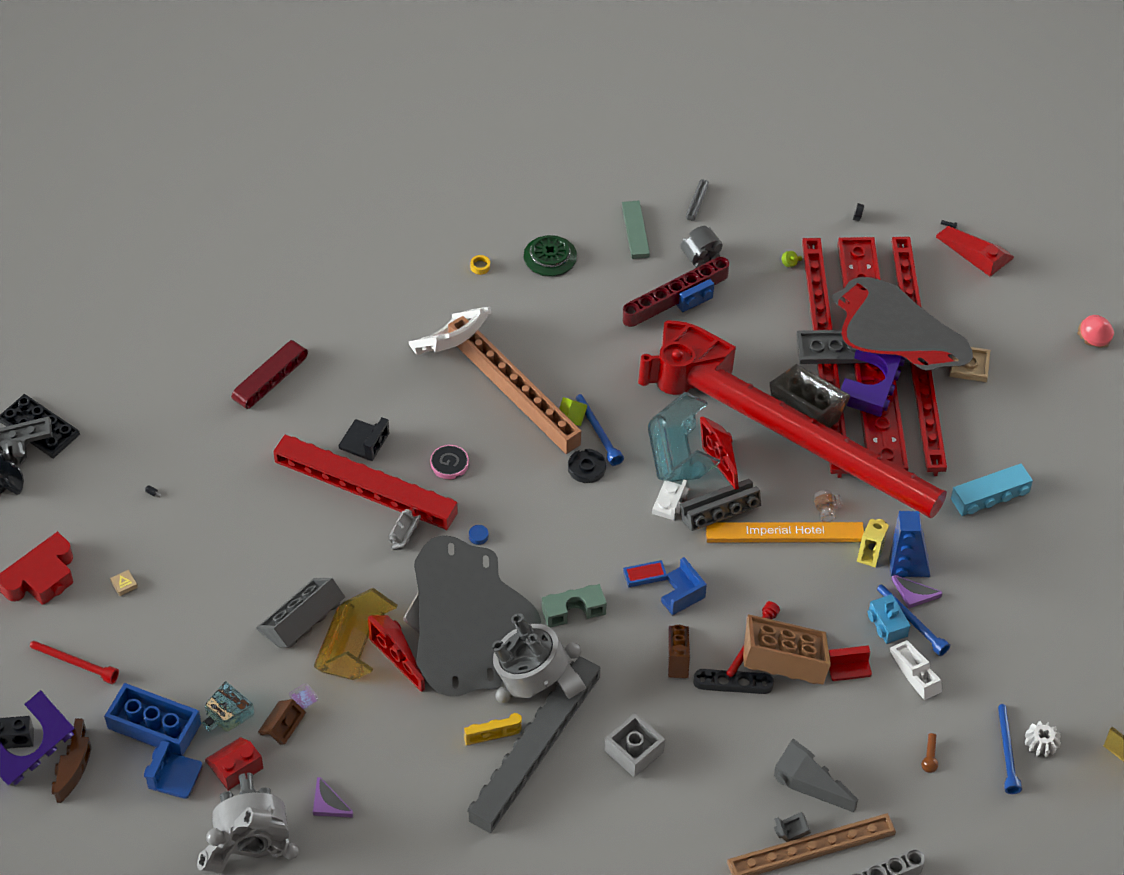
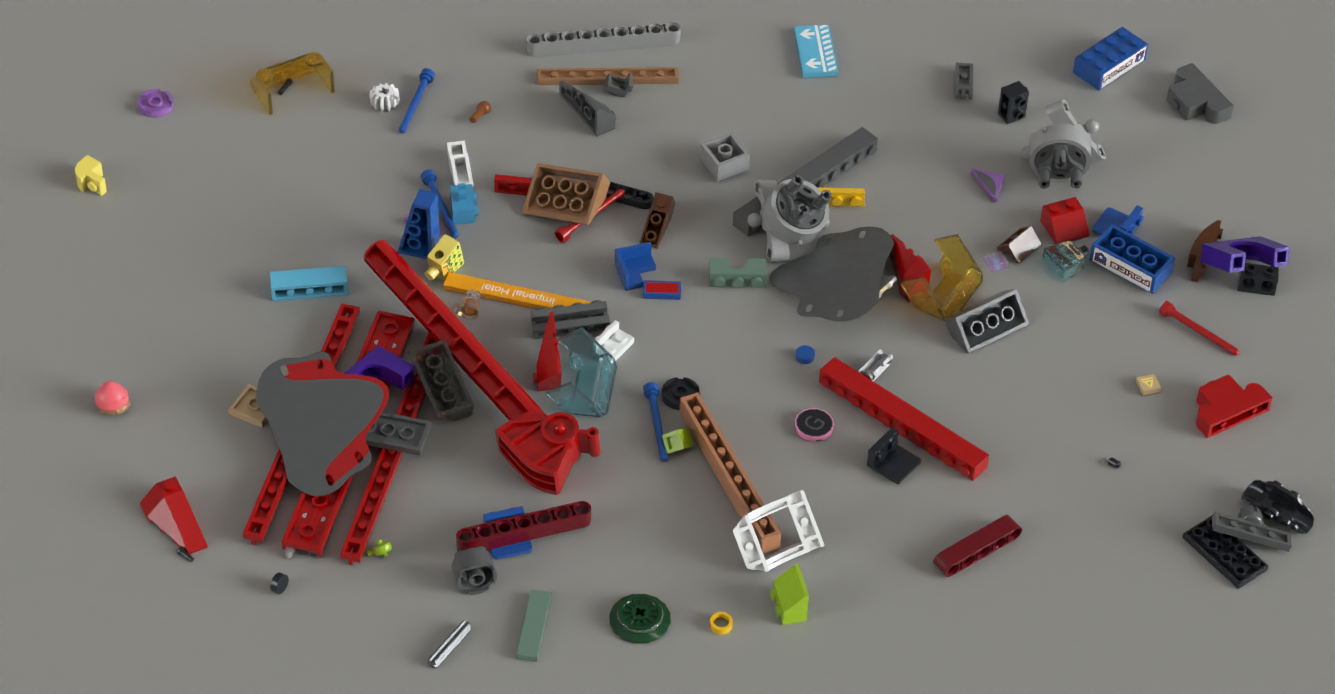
camera: 165 degrees left, 5 degrees down
(425, 286) = (790, 596): none -> lime slope

